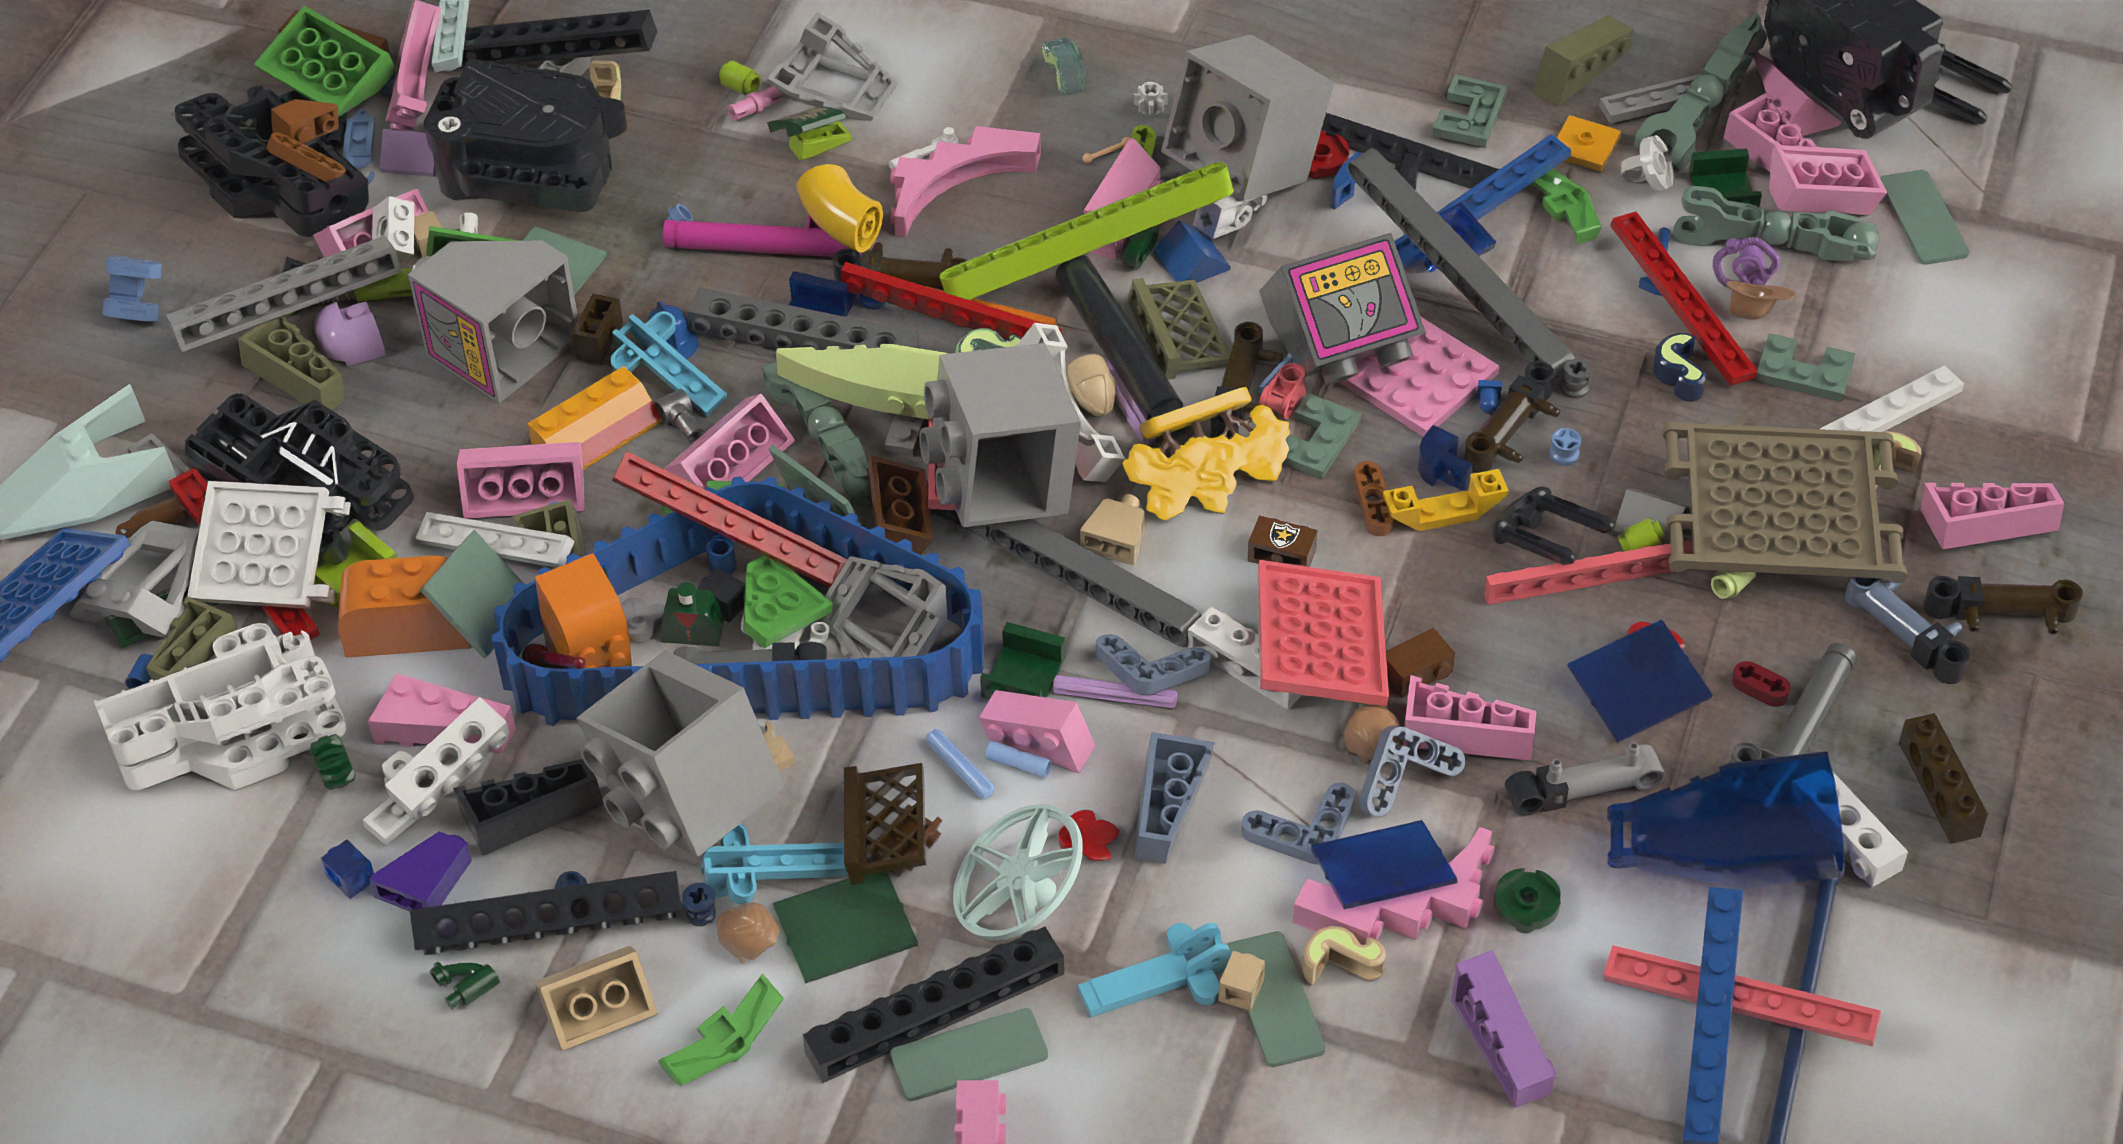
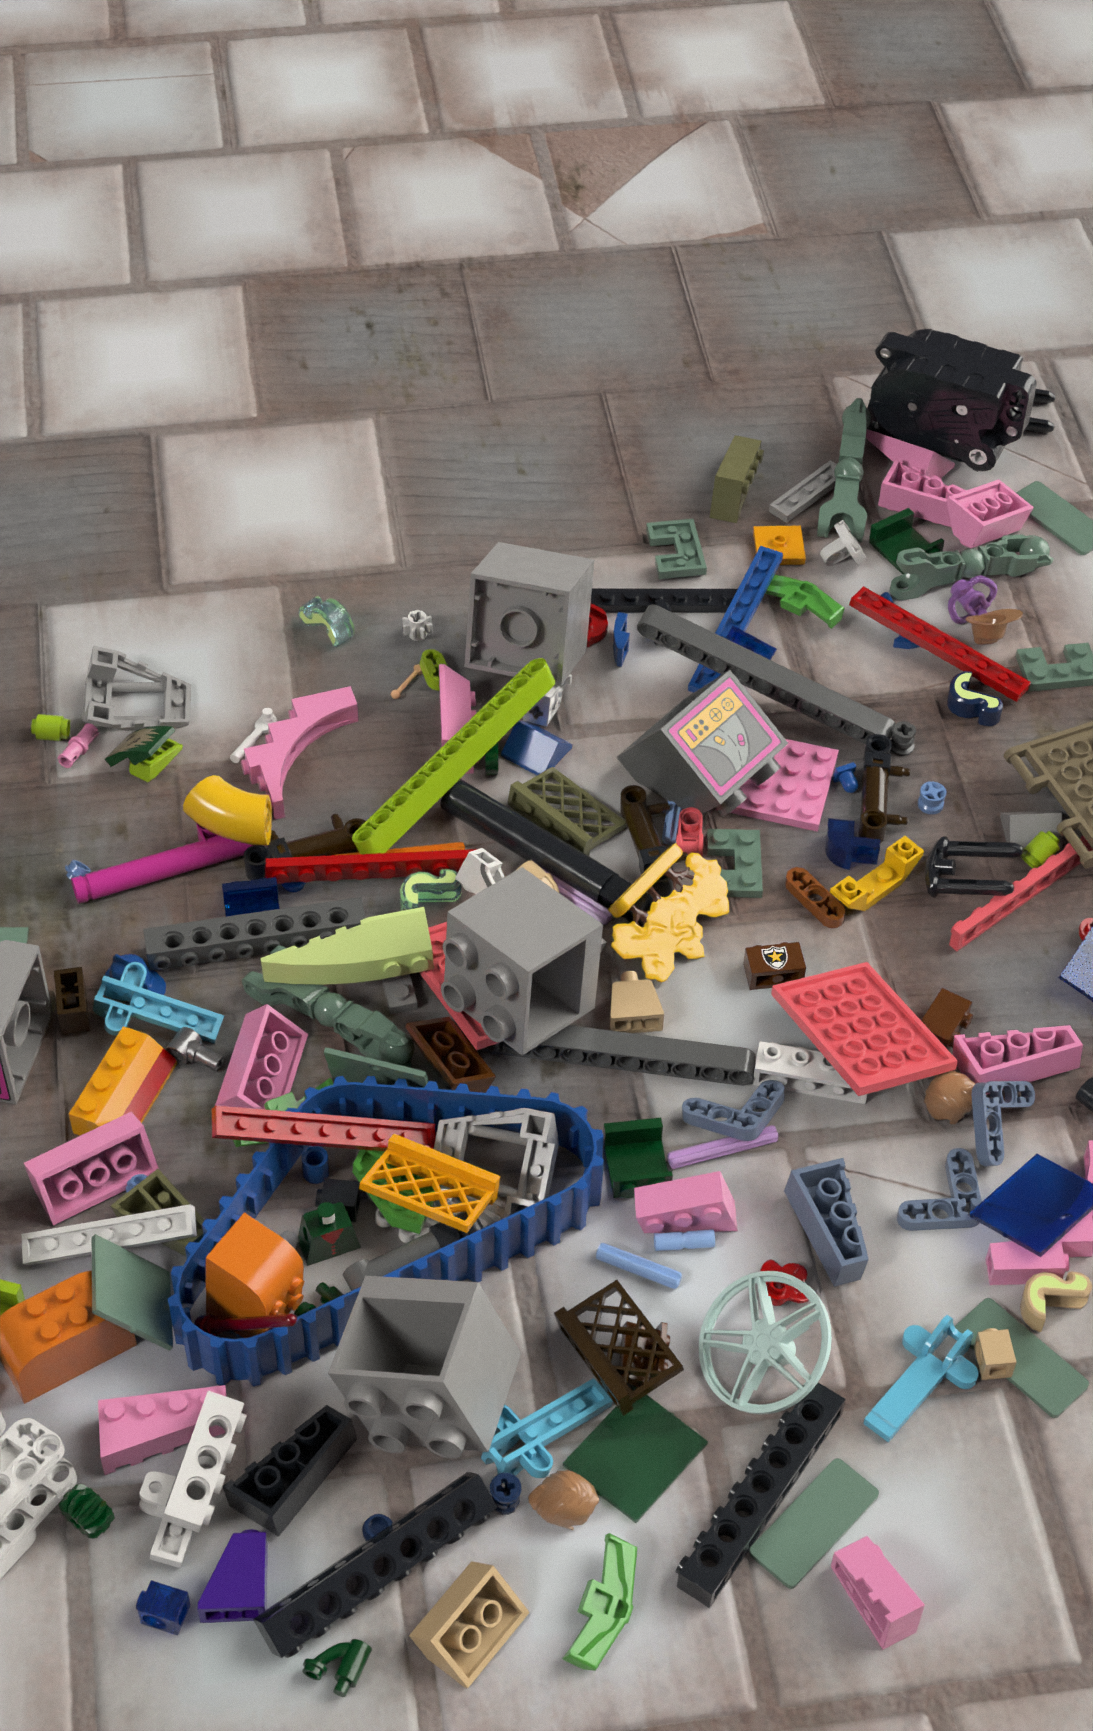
camera: 30 degrees left, 0 degrees up
(815, 598) = (436, 1170): none -> light orange fence

